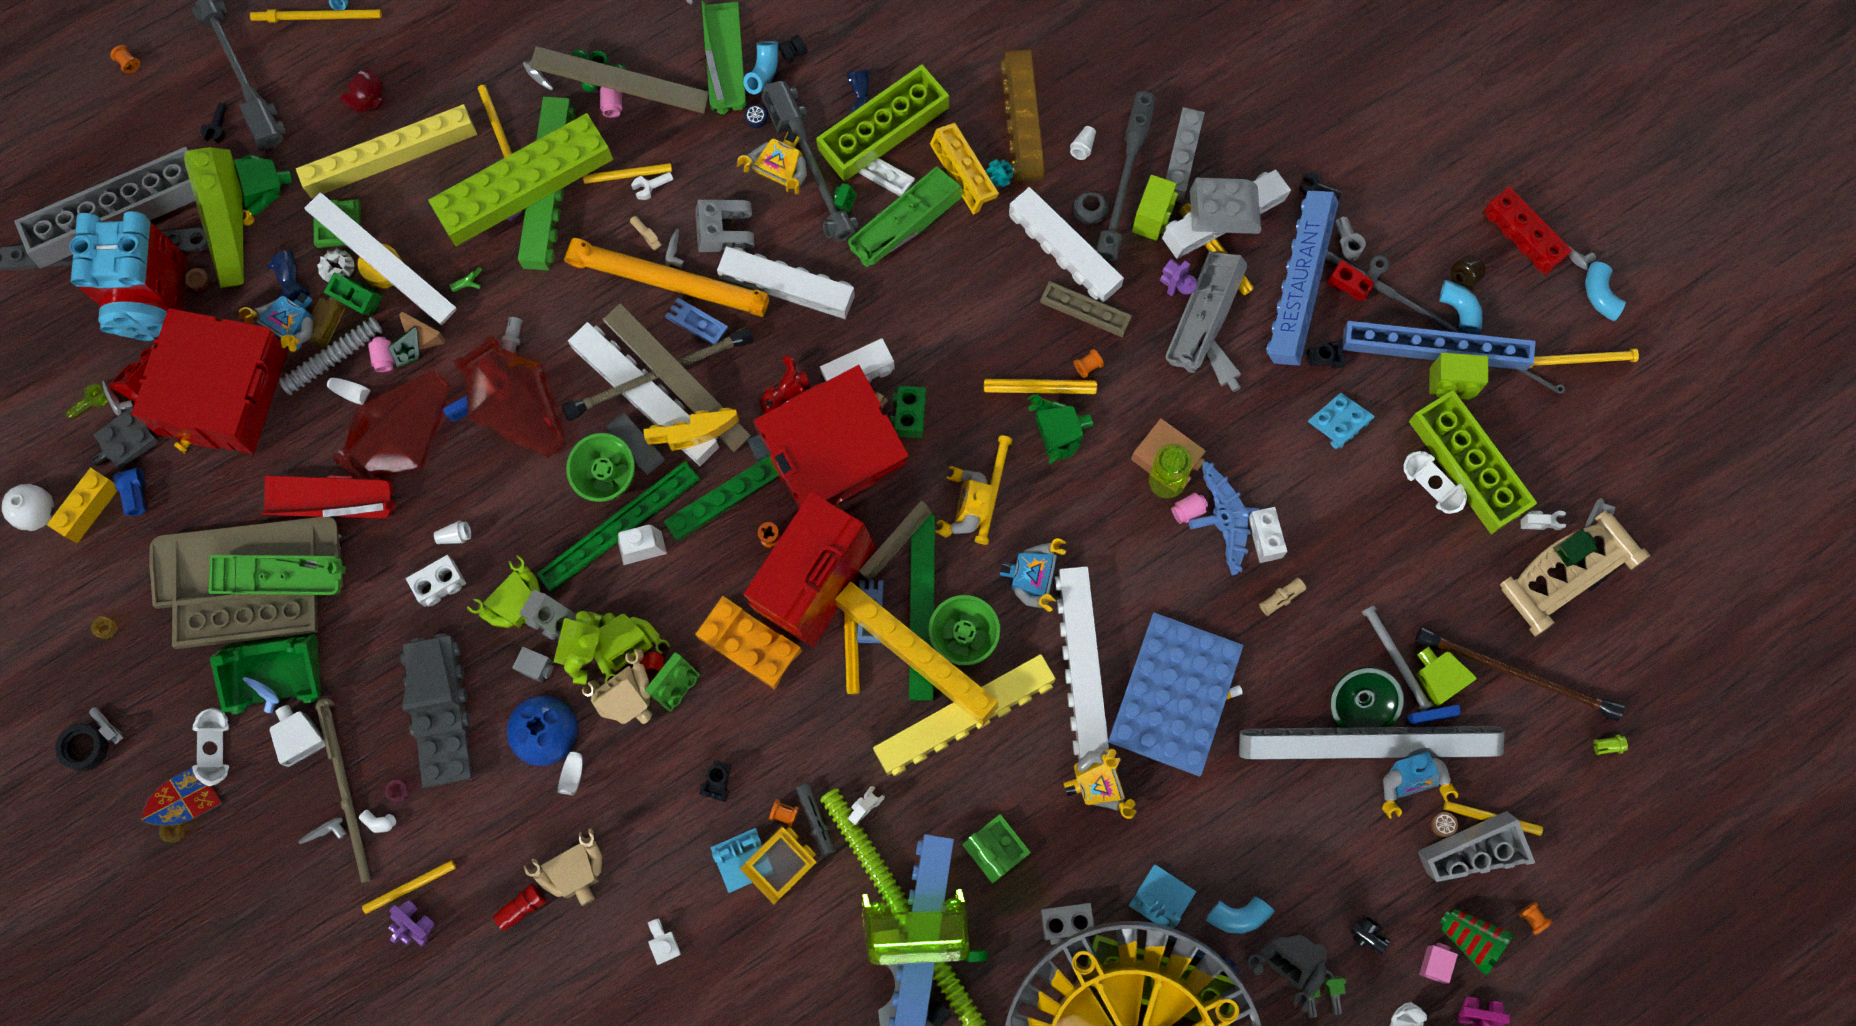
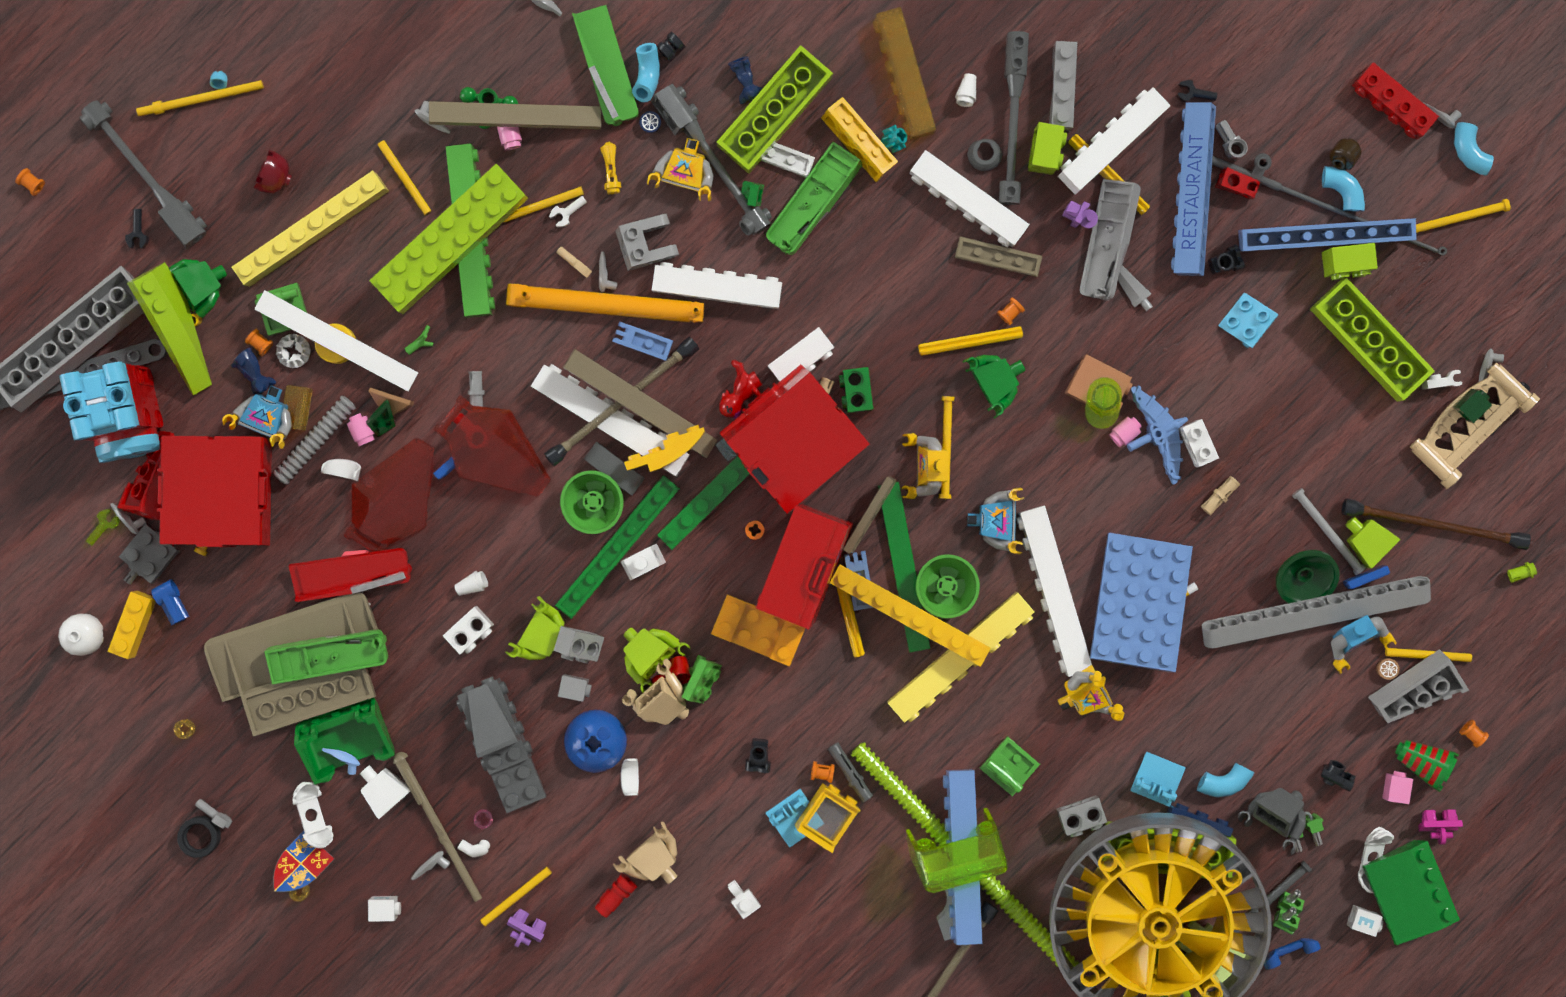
camera: 15 degrees left, 15 degrees up
(197, 279) = (167, 389): medium nougat tile -> none
(257, 869) = (383, 908): none -> white brick
(303, 250) = (259, 342): none -> orange bush
(353, 293) = (319, 378): green brick -> none
(578, 644) = (611, 663): lime torso -> none
(704, 168) = (609, 152): none -> yellow piece
(864, 806) = (890, 755): white plate -> none
(977, 956) = (1012, 857): green tile -> none
(1225, 206) = (1113, 140): light grey brick -> none
(1450, 497) = (1356, 374): white piece -> none

